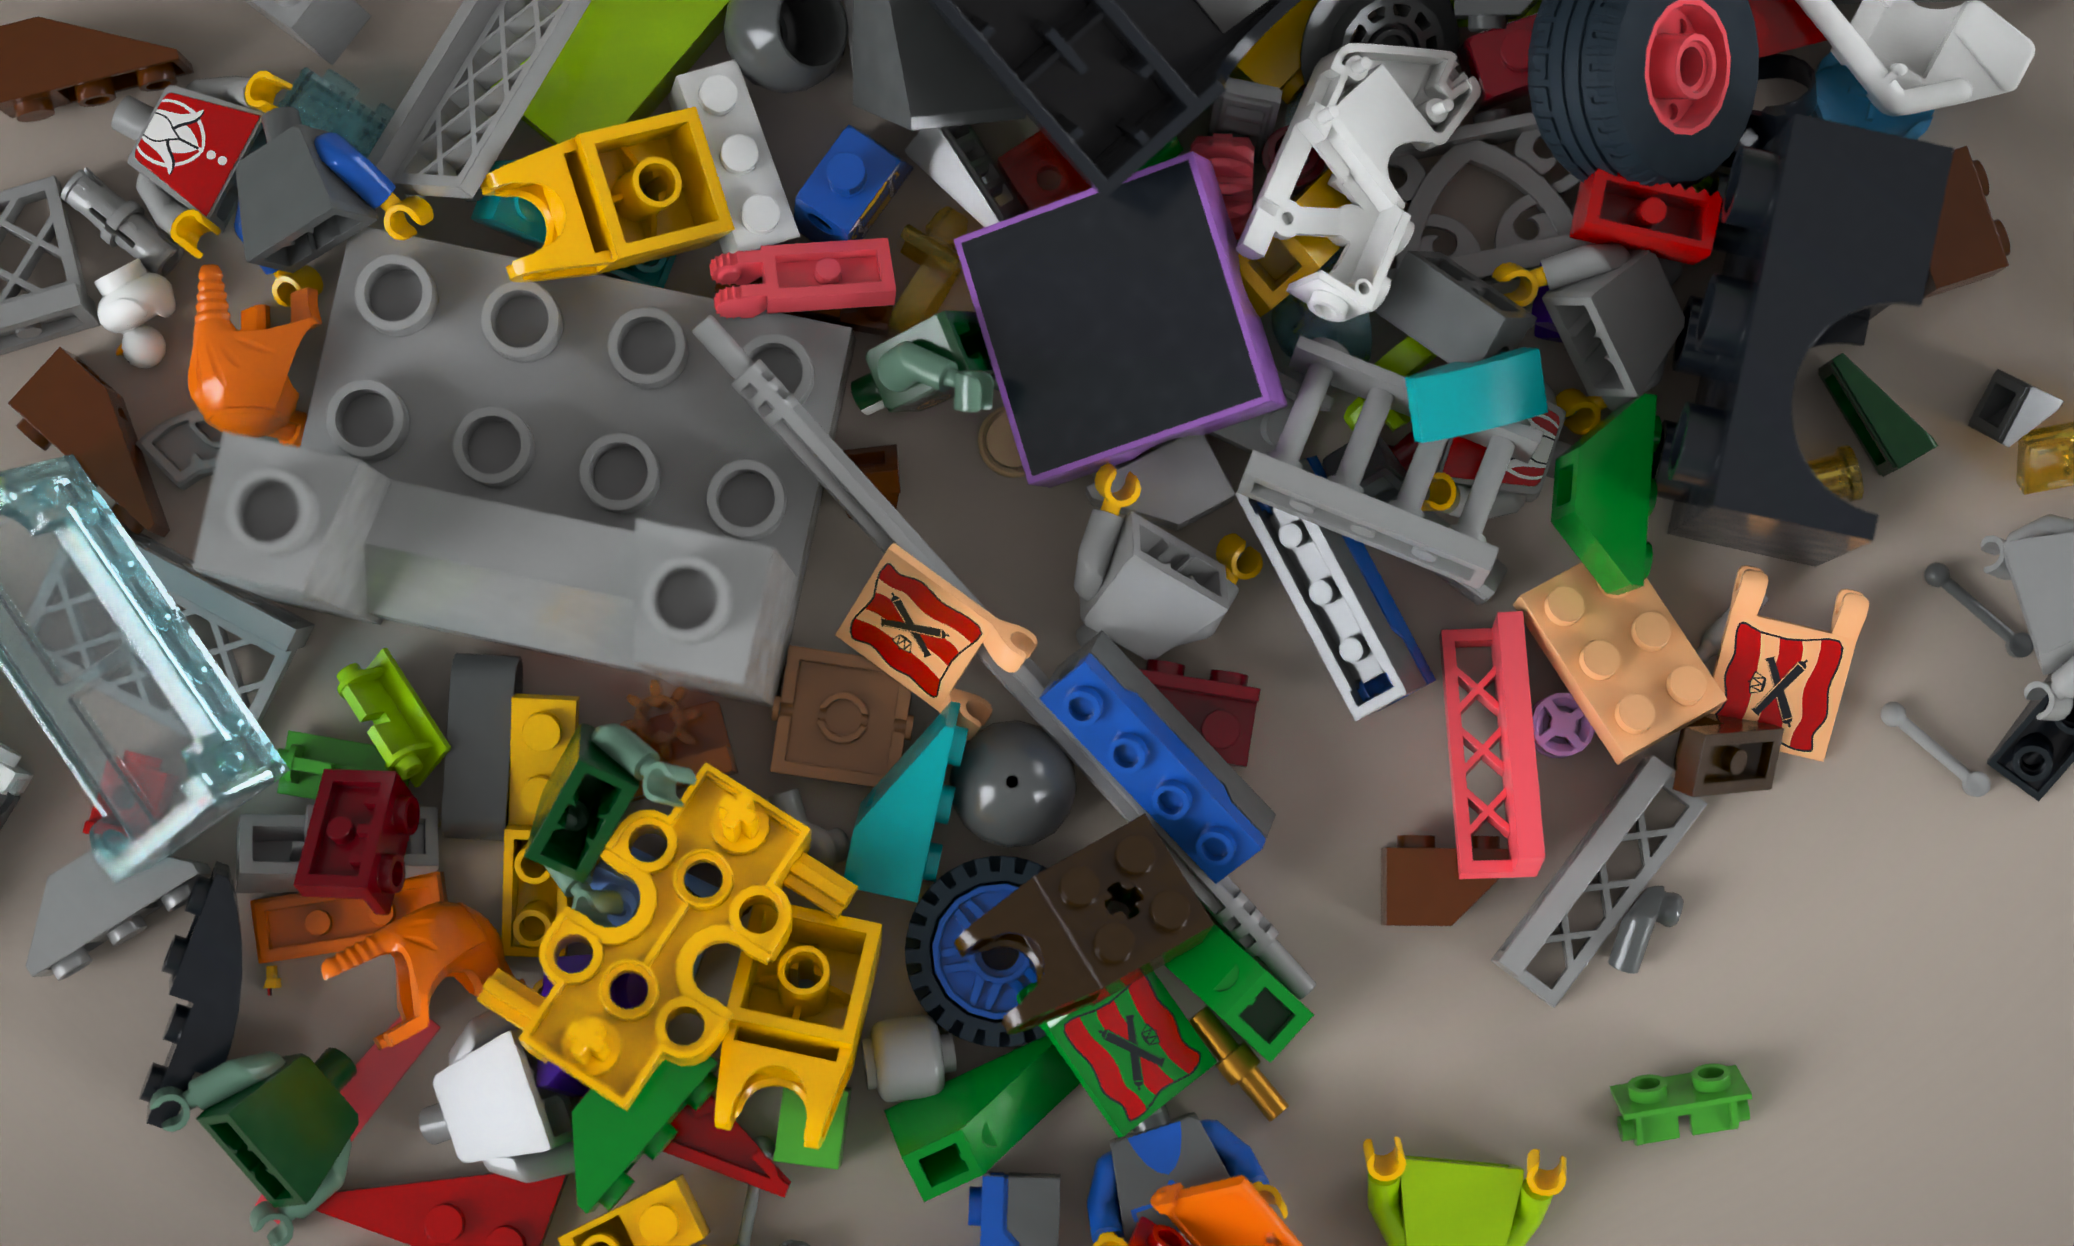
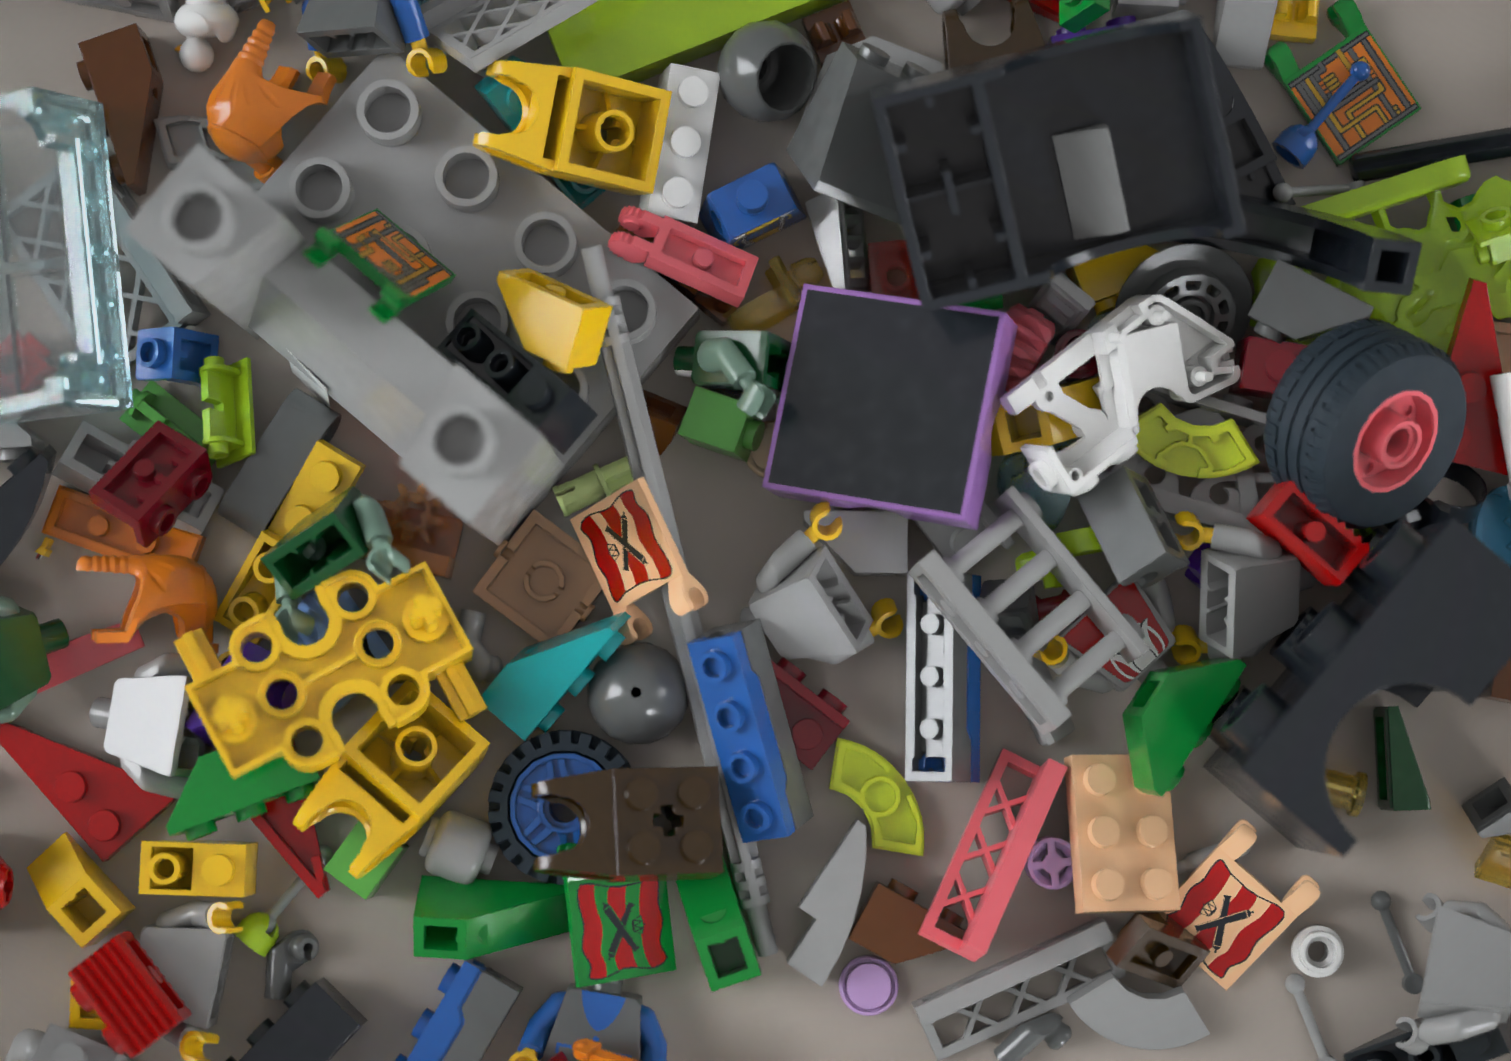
camera: 25 degrees right, 0 degrees up
(299, 689) = (173, 354): none -> blue bracket
(477, 643) = (321, 394): none -> white sticker
(485, 453) = (386, 257): none -> flag
(700, 504) = (518, 380): none -> black slope
(704, 421) = (554, 319): none -> yellow slope
(841, 584) = (593, 486): none -> yellowish green axle
(945, 443) = (720, 426): none -> bright green brick
(1238, 1063) = (691, 979): pearl gold bar -> none
(1337, 752) = (882, 796): none -> neon yellow tile
(1349, 897) = (833, 904): none -> light grey slope
(1434, 966) = (868, 985): none -> lavender piece
(1470, 194) = (1190, 448): none -> neon yellow tile
(1476, 395) = (1115, 597): teal slope -> none
(1744, 842) = (1138, 1018): none -> light grey tile
(1917, 662) = (1333, 953): none -> white plate

